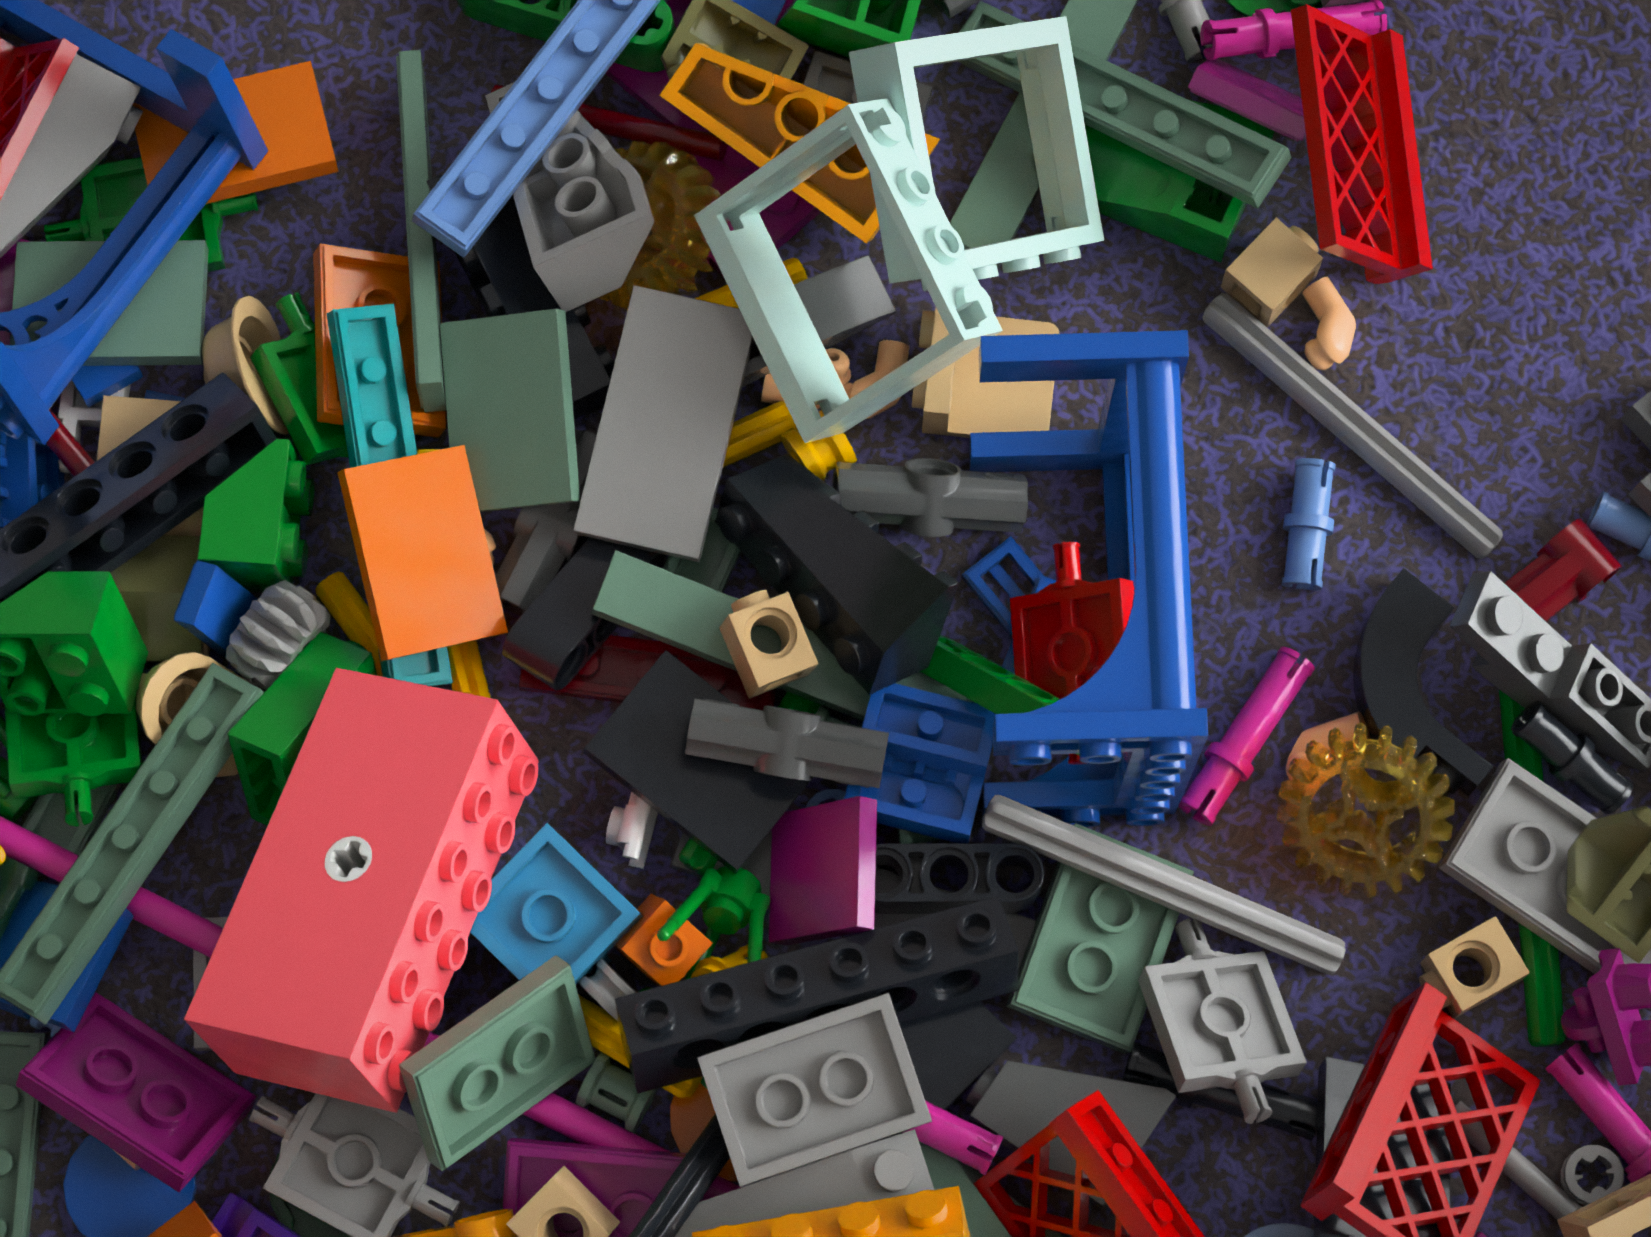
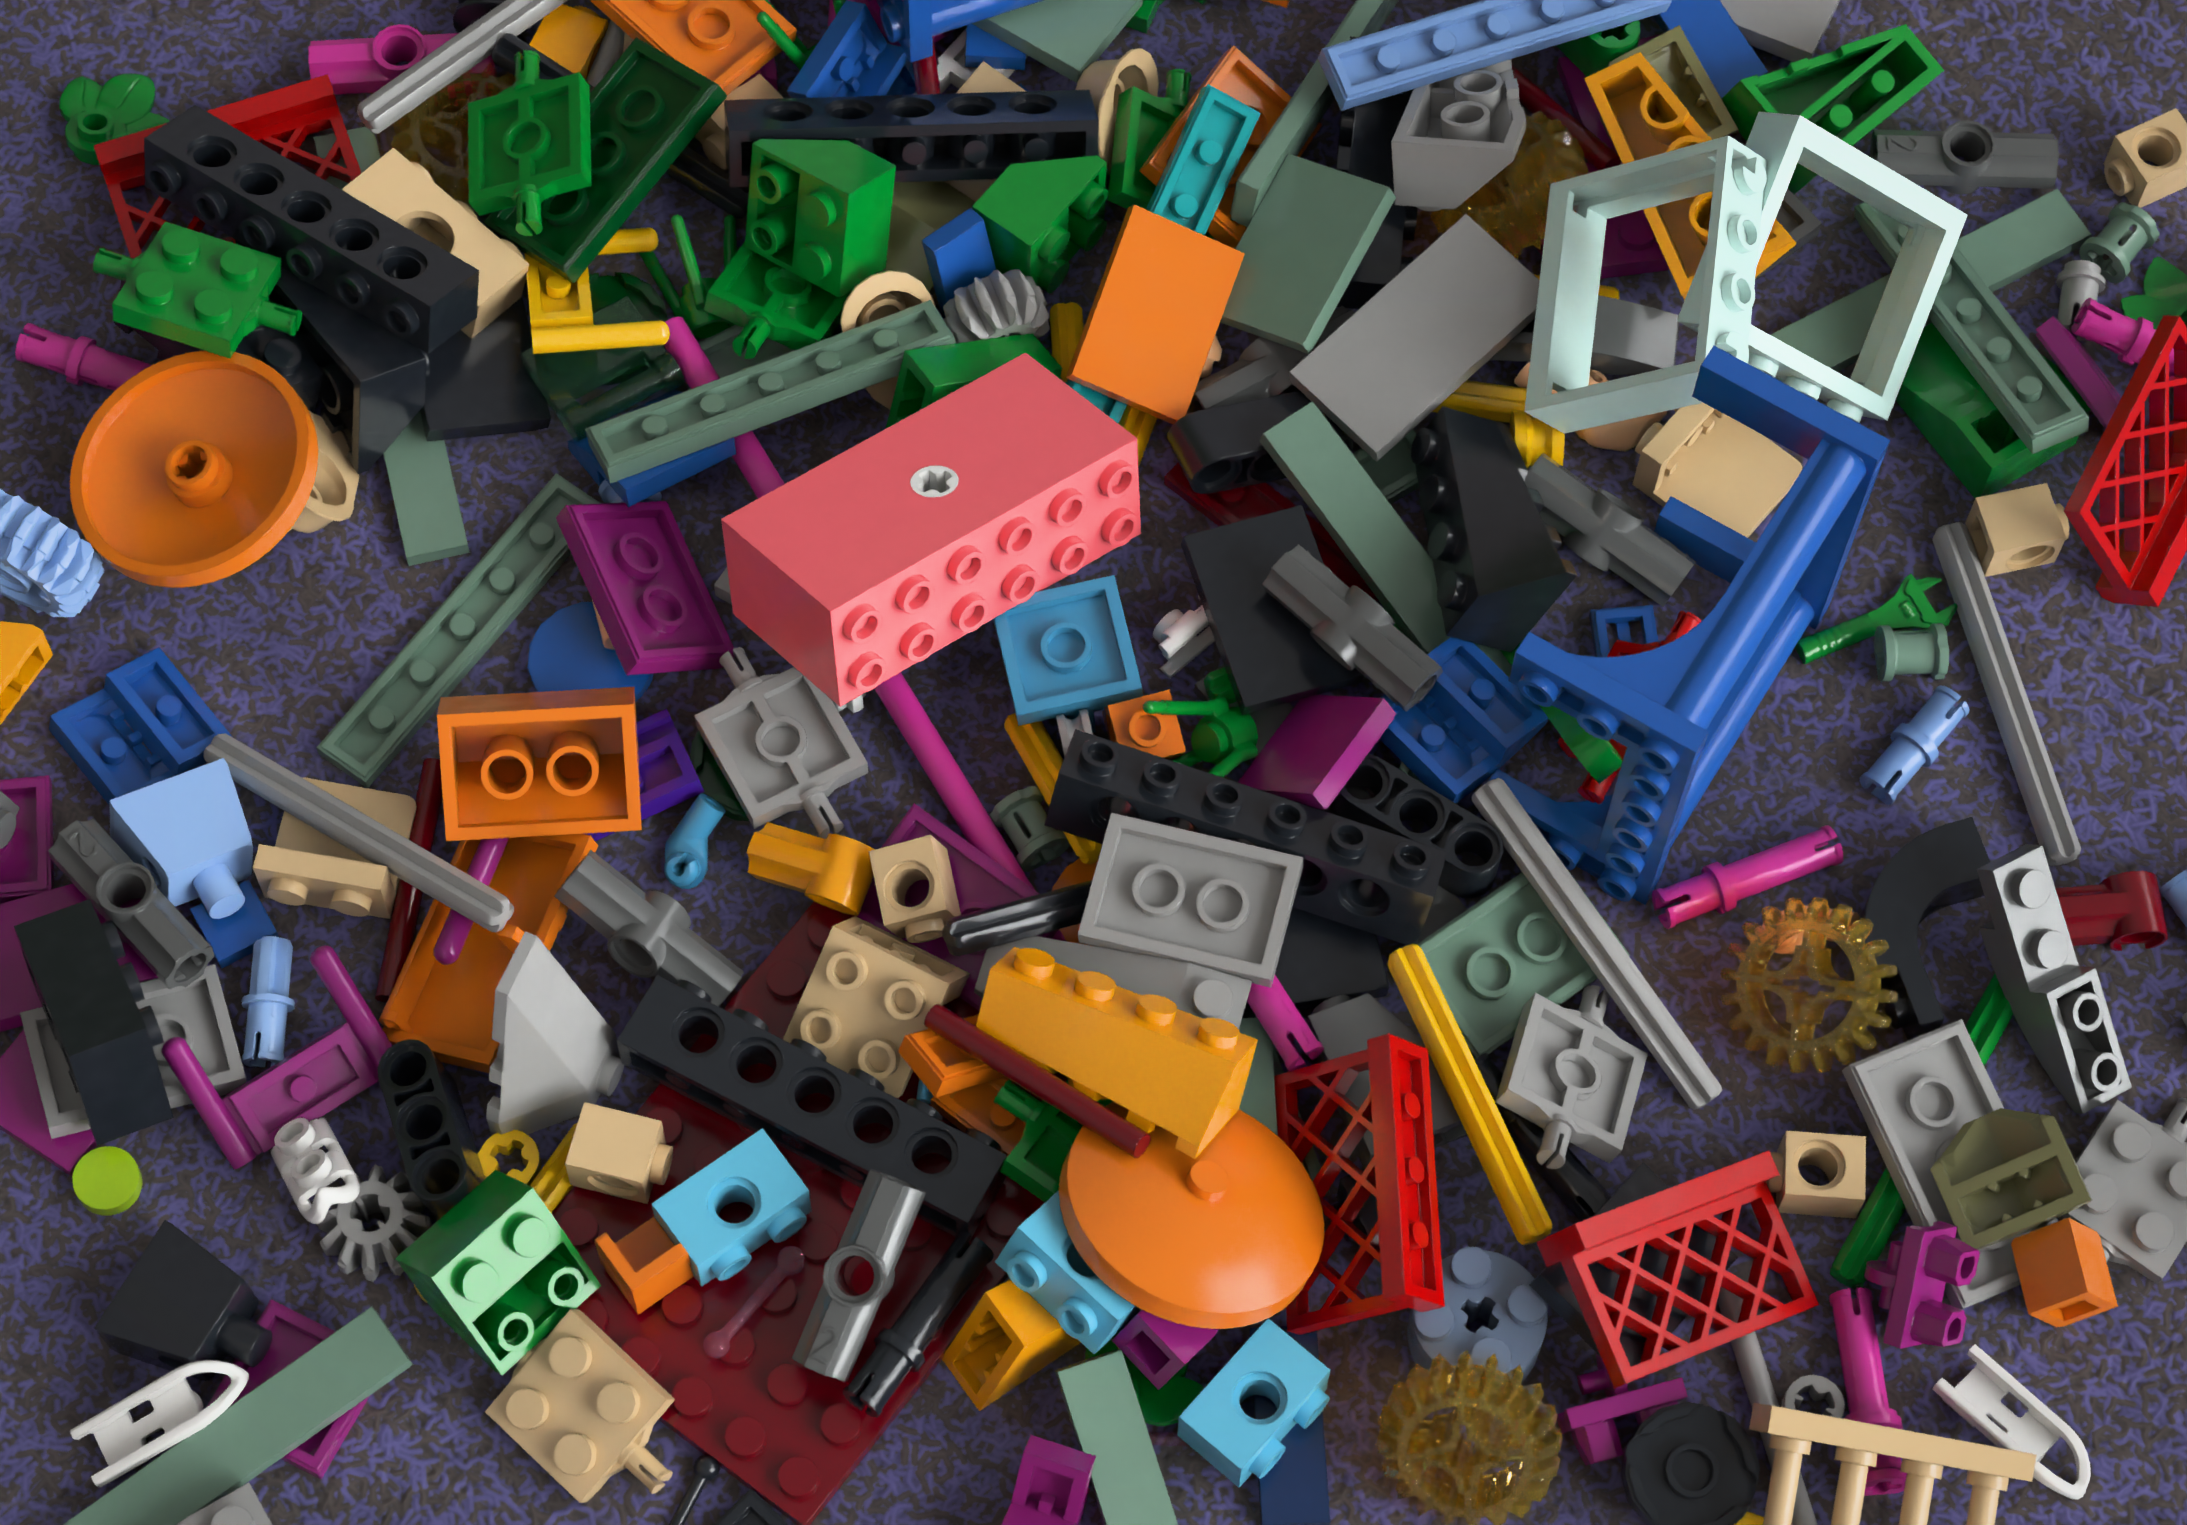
camera: 30 degrees right, 10 degrees down
(498, 1062) = (947, 725): sand green tile -> none
(757, 669) = (1378, 566): tan brick -> none
(1152, 1100) = (1469, 1095): none -> yellow axle
(1221, 403) = (1903, 611): none -> green piece
(1254, 441) = (1911, 652): none -> sand green bush
(1335, 326) = (2043, 607): light nougat arm -> none
(1572, 757) = (2019, 1055): black pin -> none

